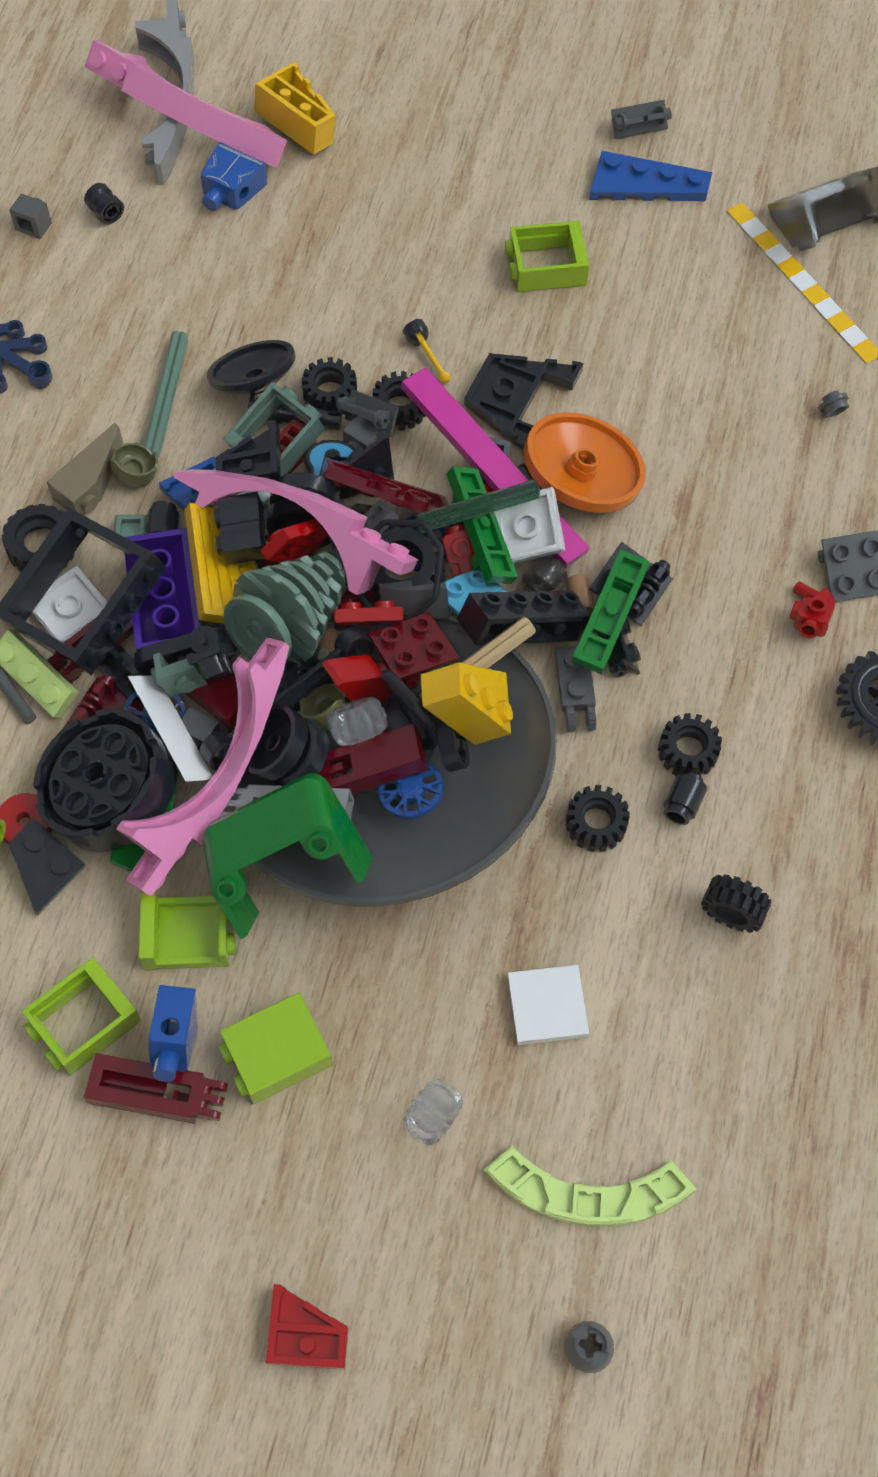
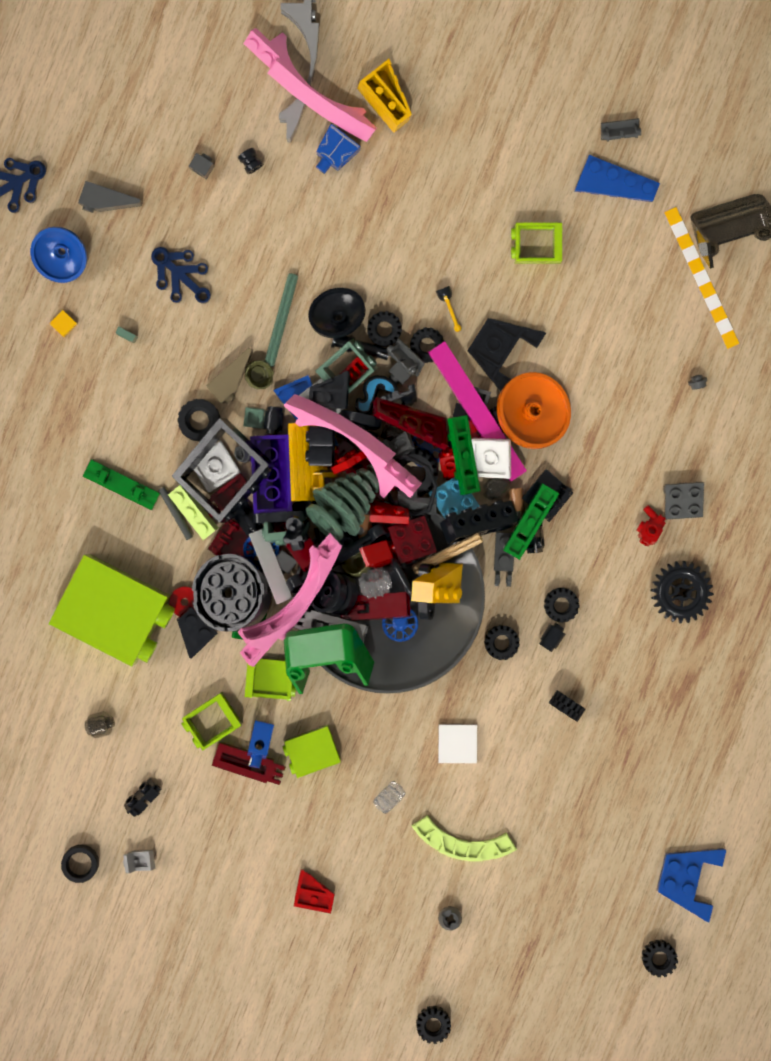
camera: 10 degrees right, 25 degrees up
(112, 576) = (241, 455): none -> dark grey plate
(480, 505) = (461, 450): clear green axle -> none

